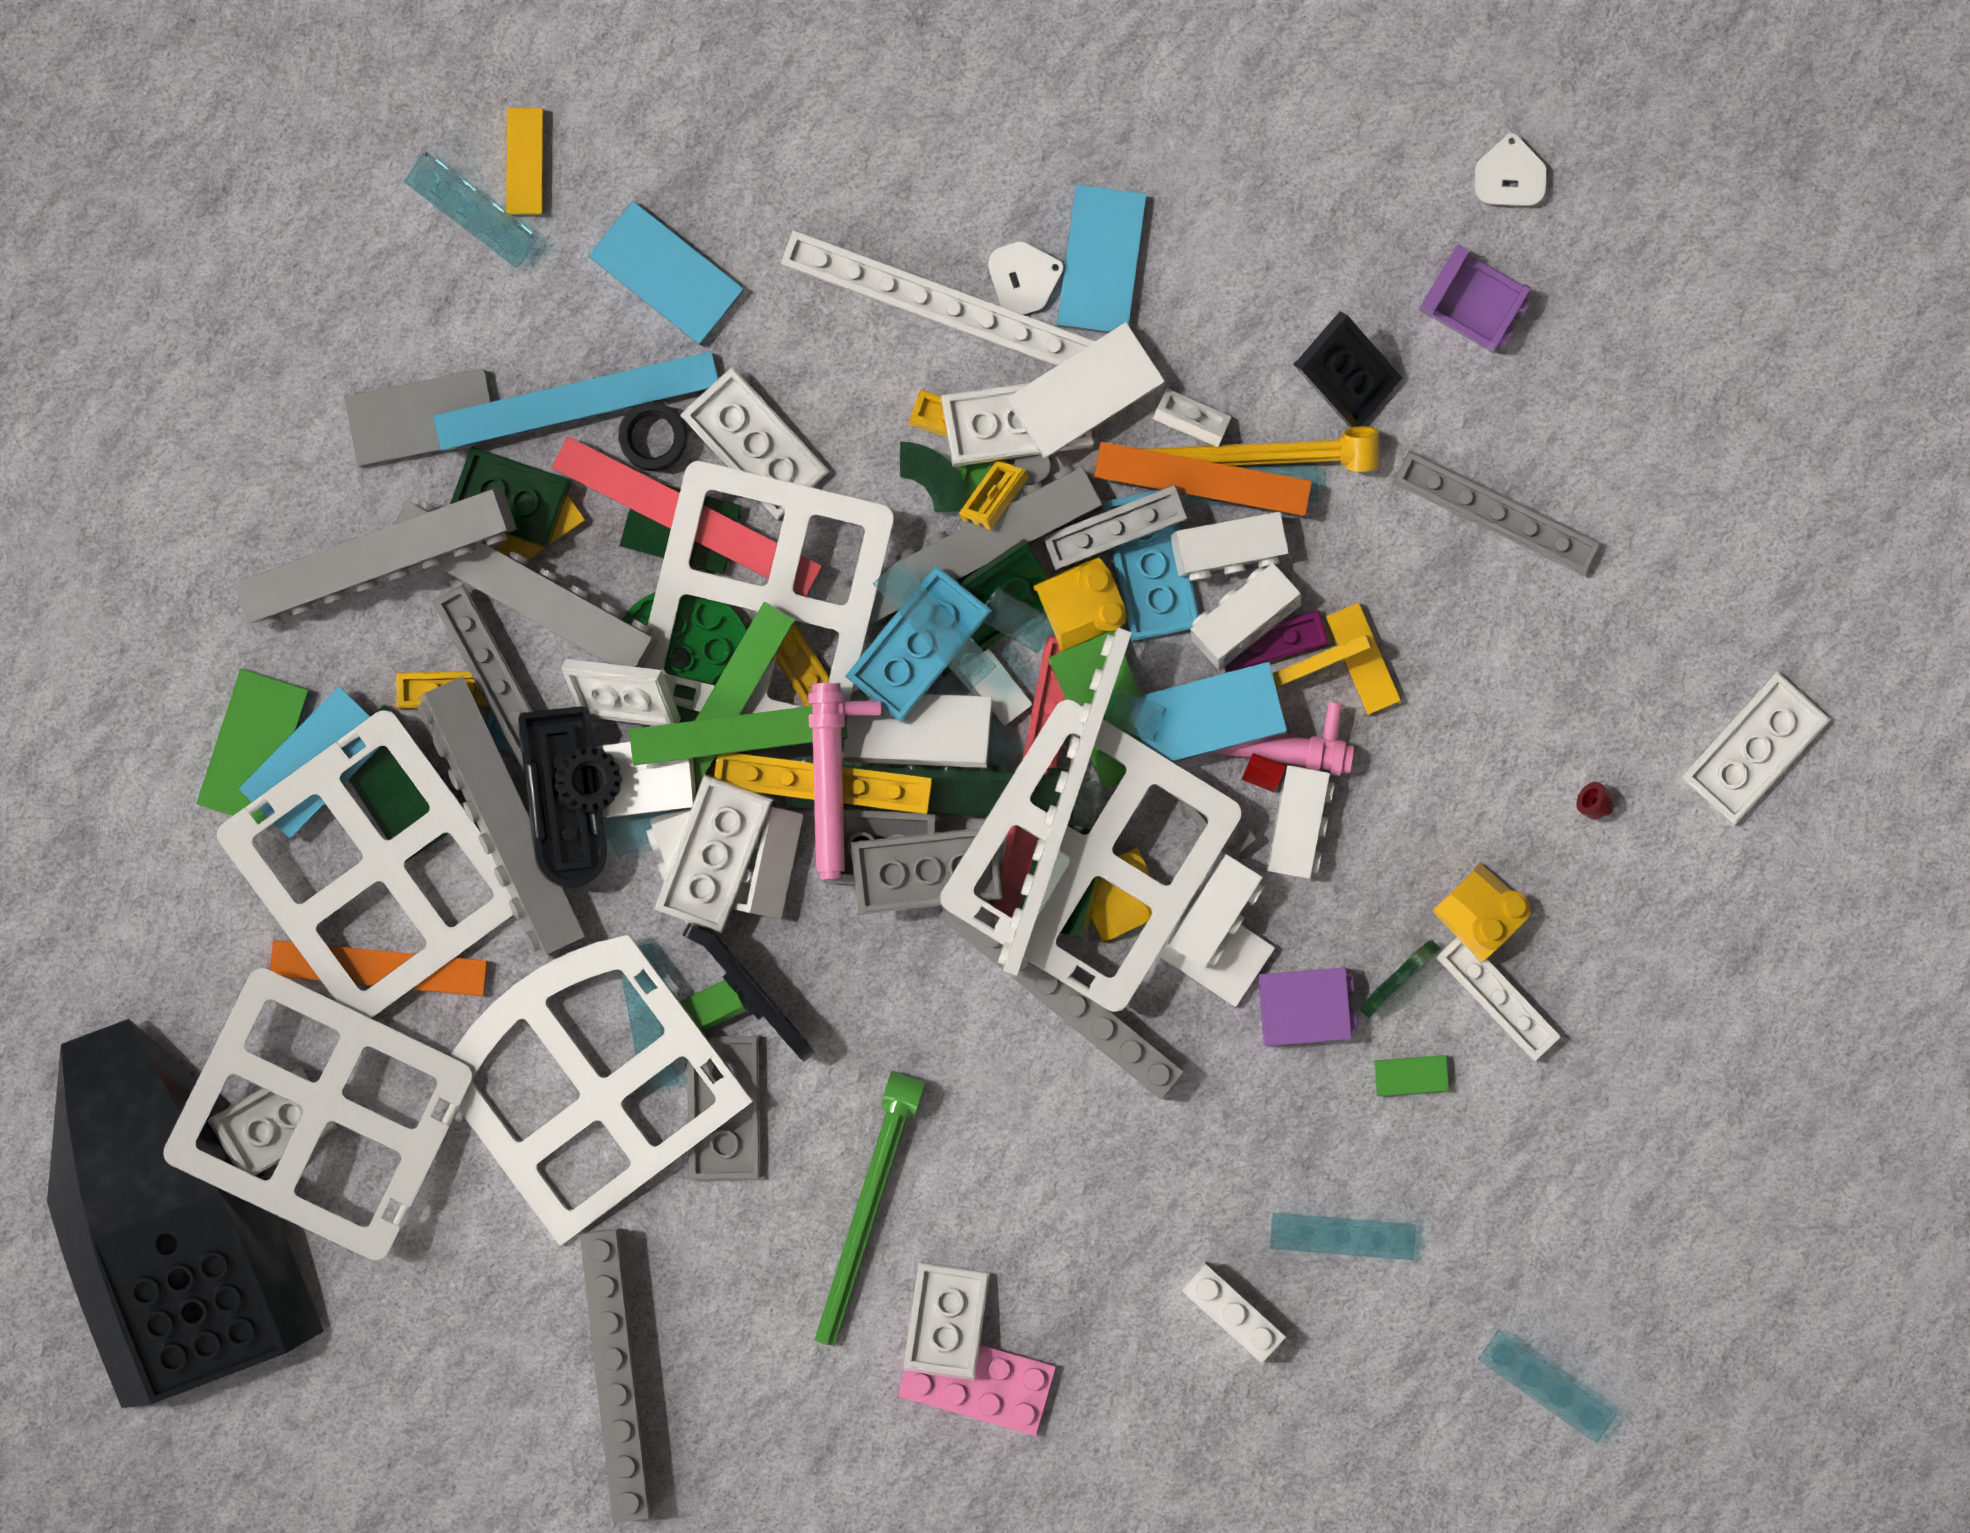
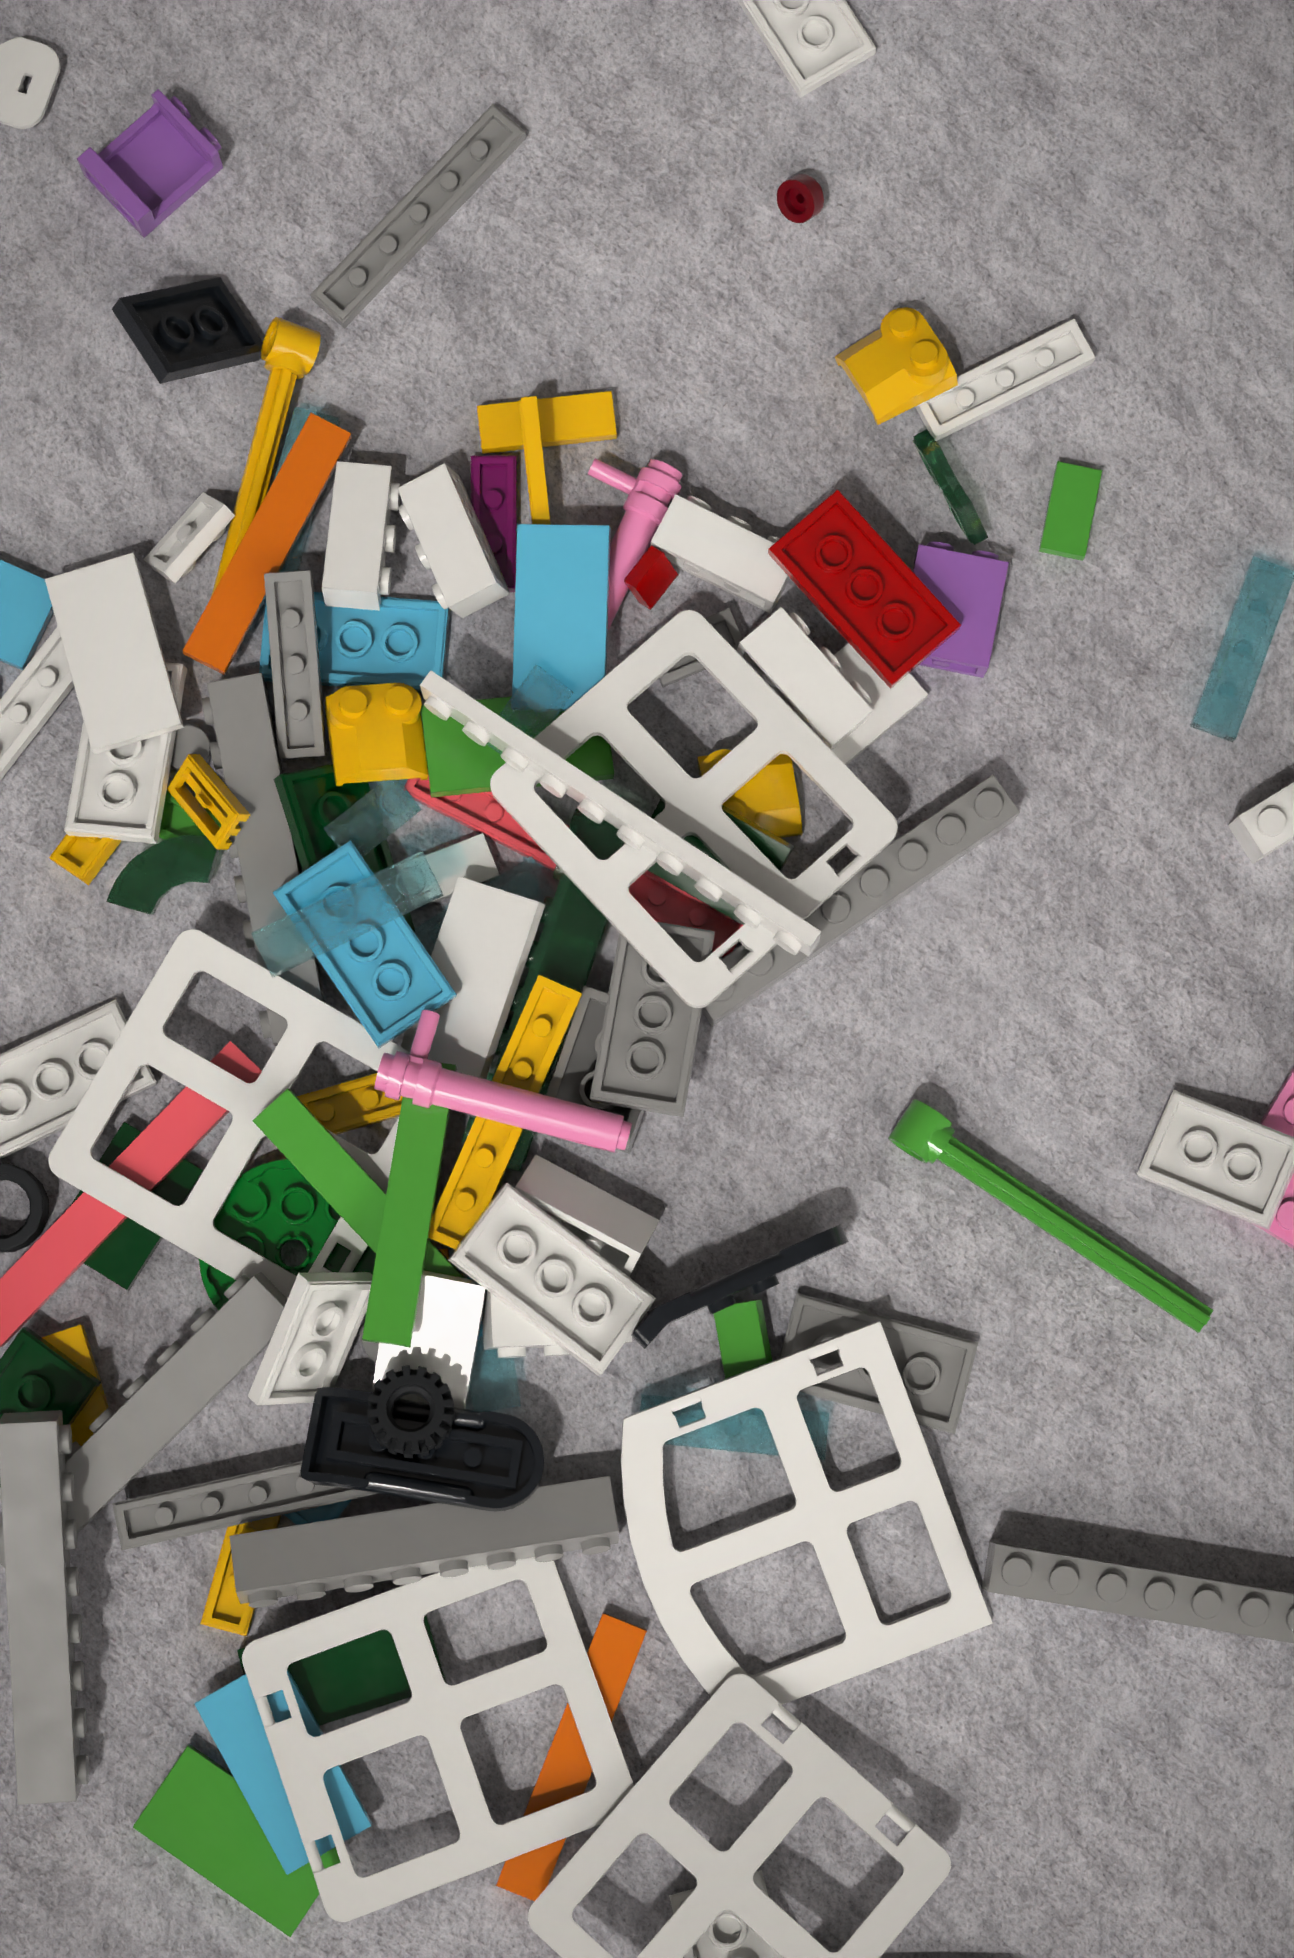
camera: 80 degrees left, 5 degrees down
(1295, 935) = (864, 589): none -> red plate

